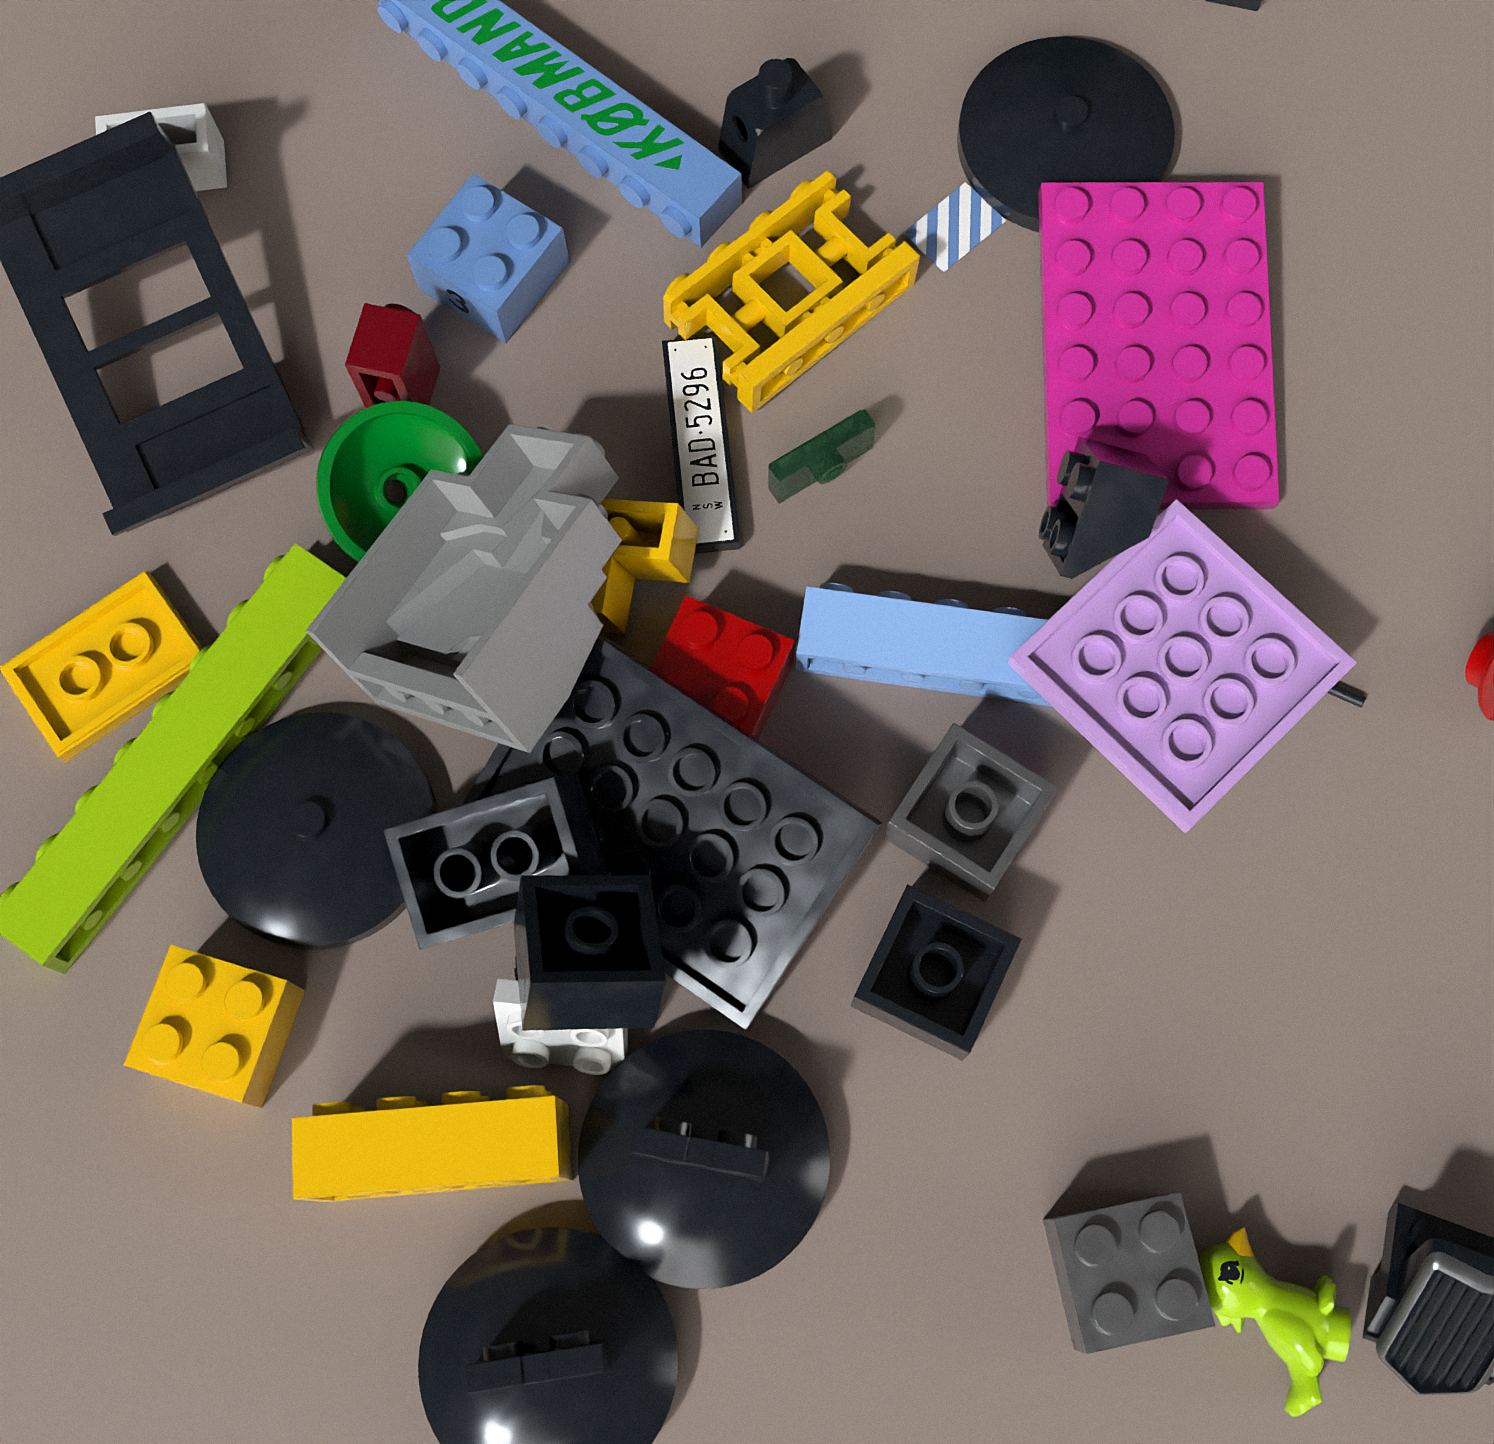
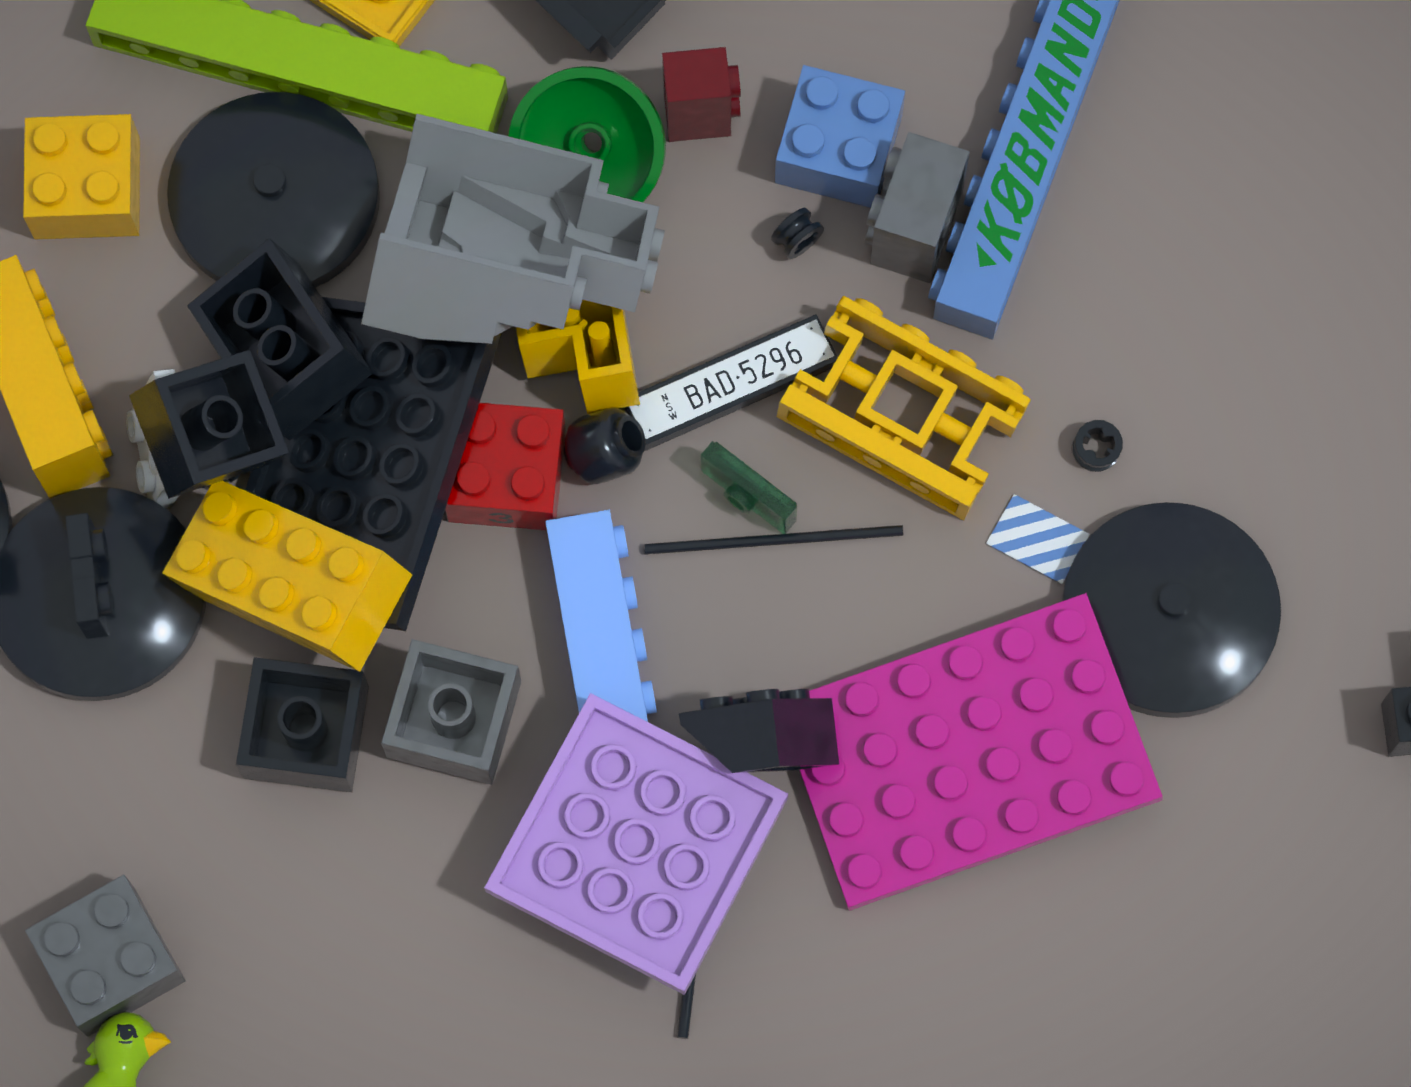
camera: 70 degrees right, 0 degrees up
(572, 330) = (797, 233): none -> black bush
(599, 200) = (916, 206): none -> flat silver brick
(731, 573) = (604, 445): none -> black head
(773, 121) = (1070, 336): black torso -> none
(779, 926) = (288, 574): none -> yellow brick
(875, 460) = (775, 539): none -> black piece
(883, 128) = (1107, 433): none -> black bush

